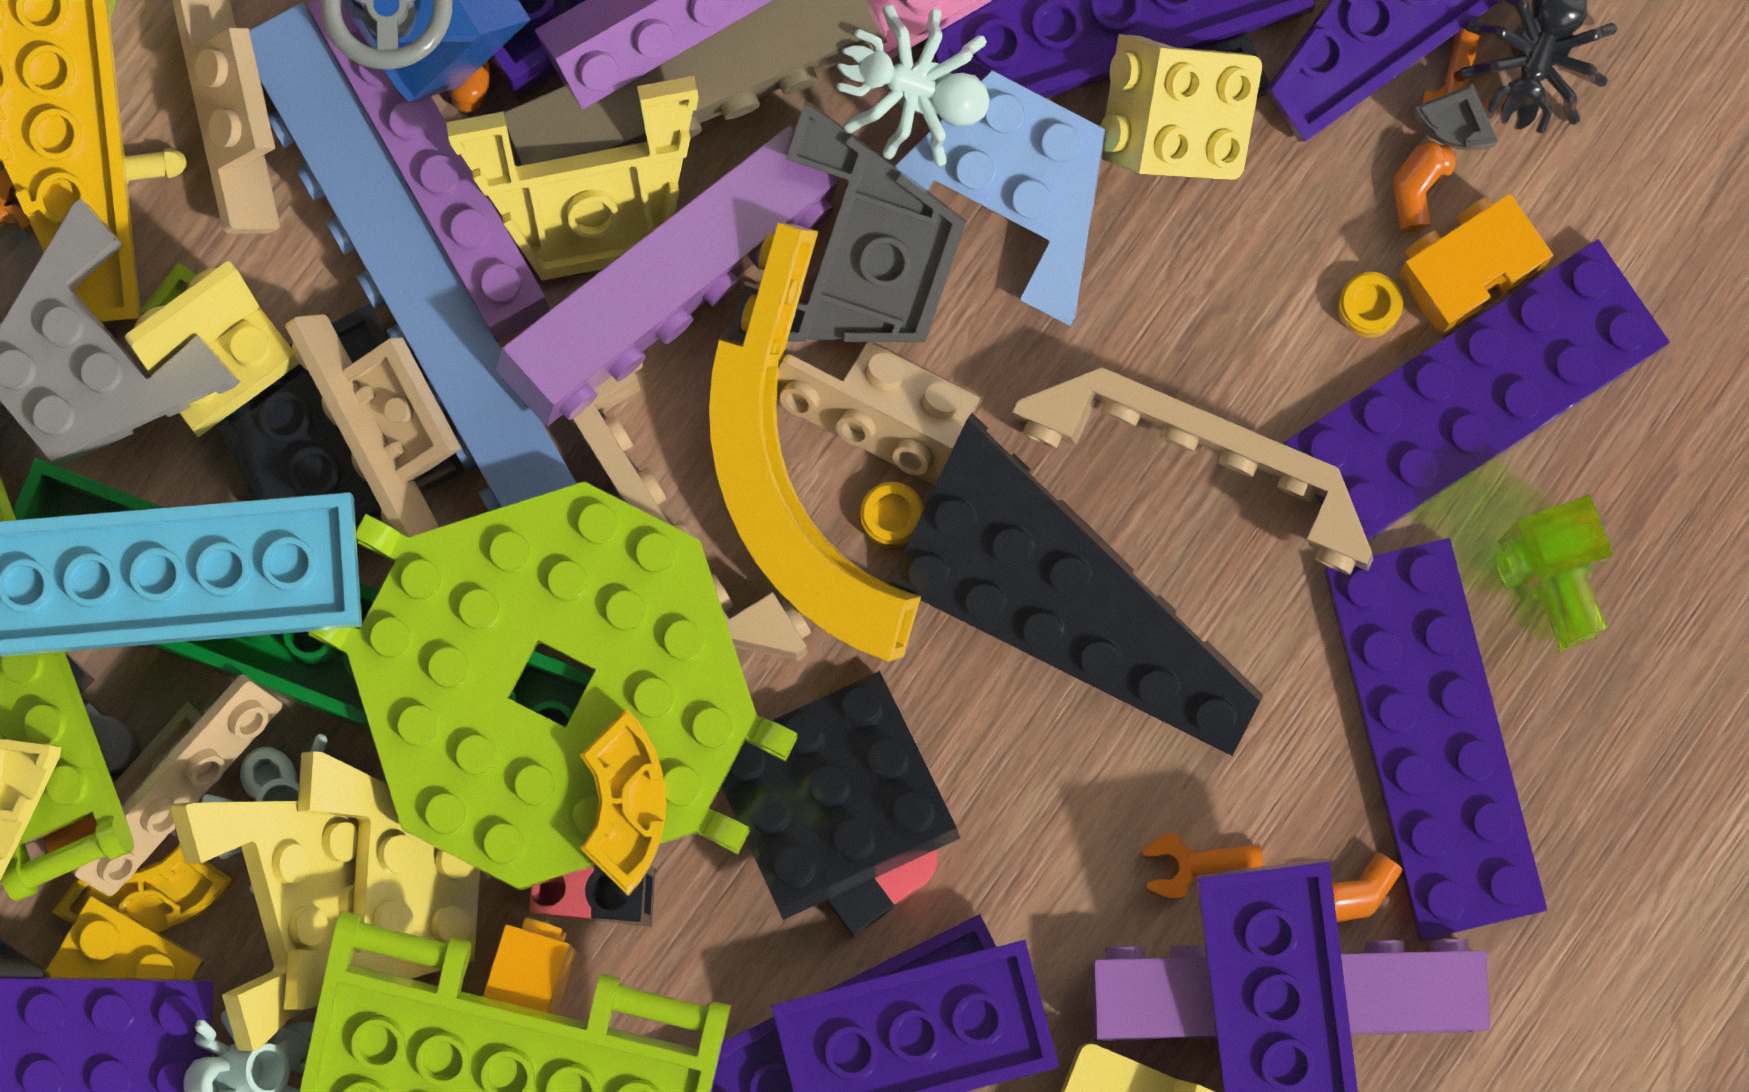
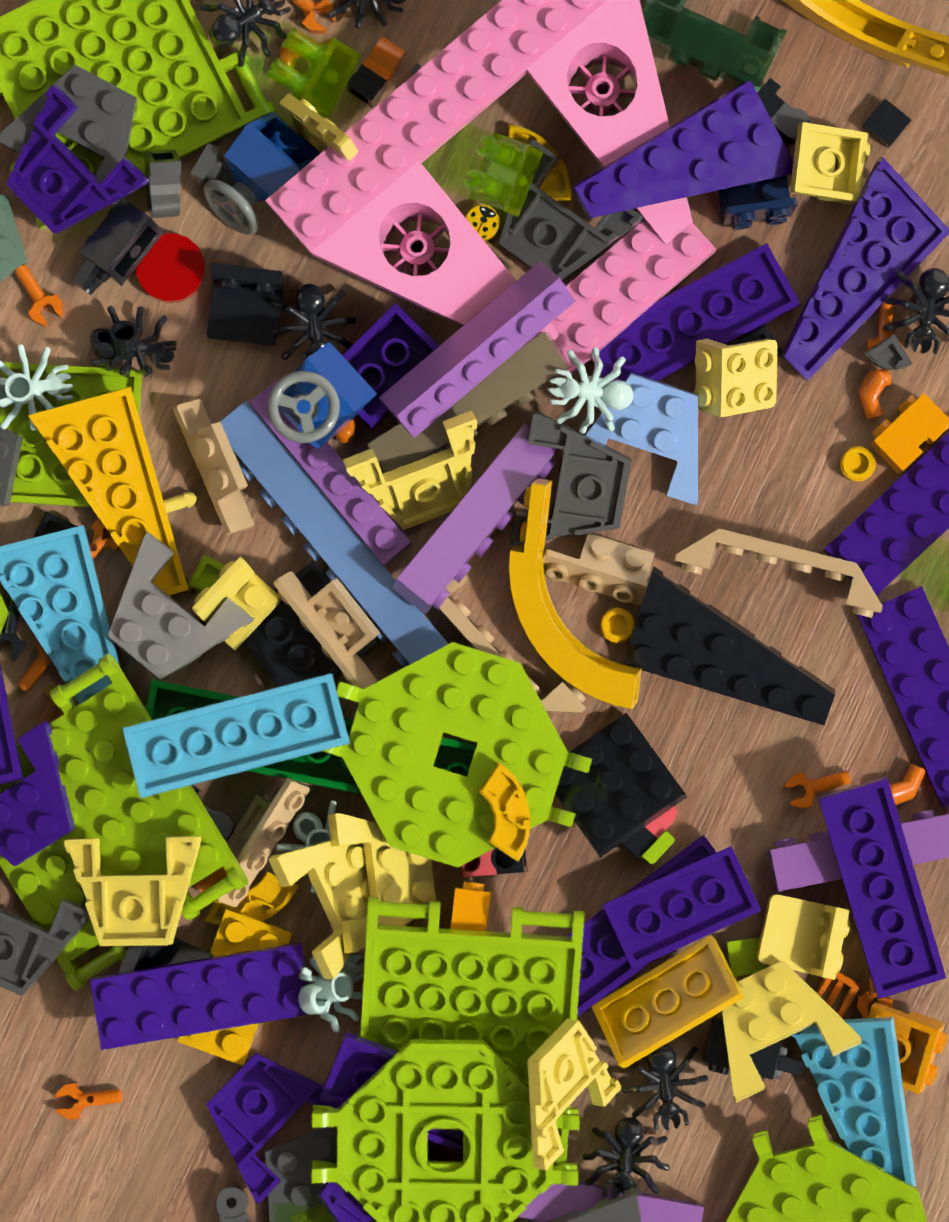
camera: 10 degrees left, 5 degrees up
(893, 923) = (658, 848): none -> lime tile

